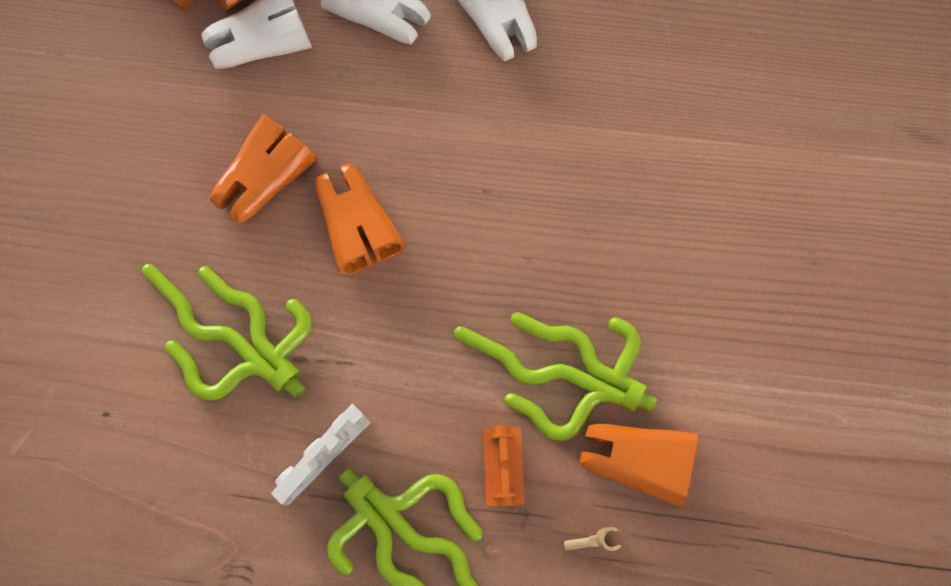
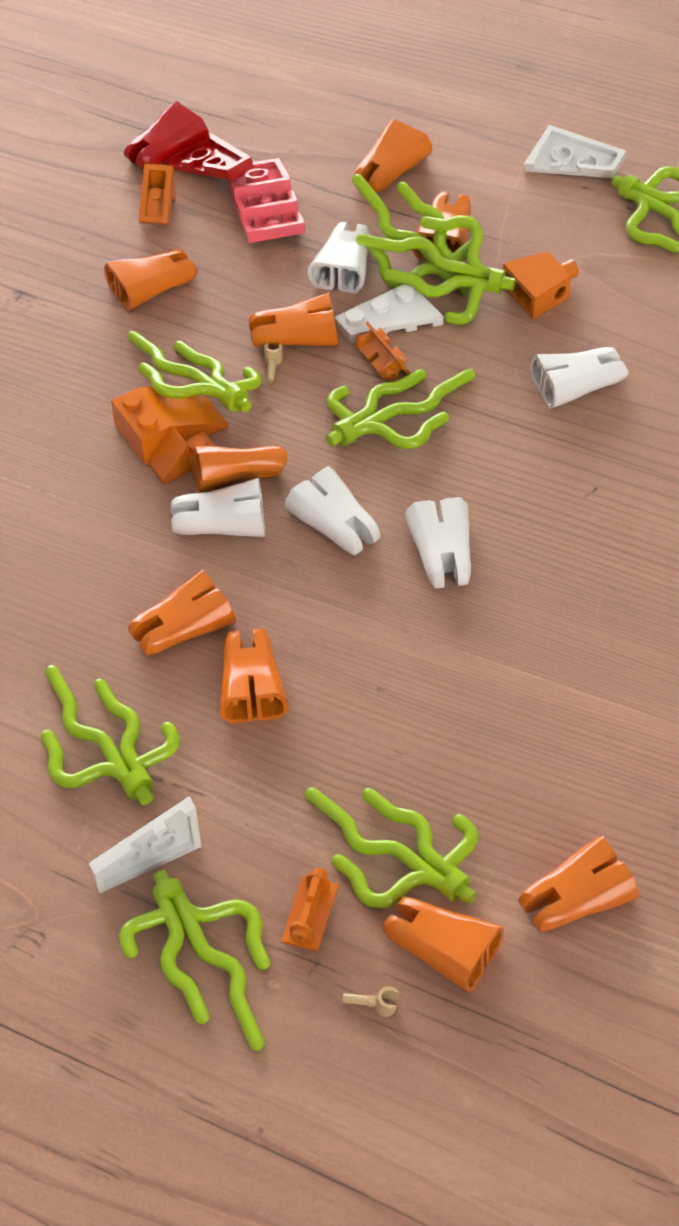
camera: 20 degrees right, 25 degrees down
(753, 361) = (580, 887): none -> orange piece

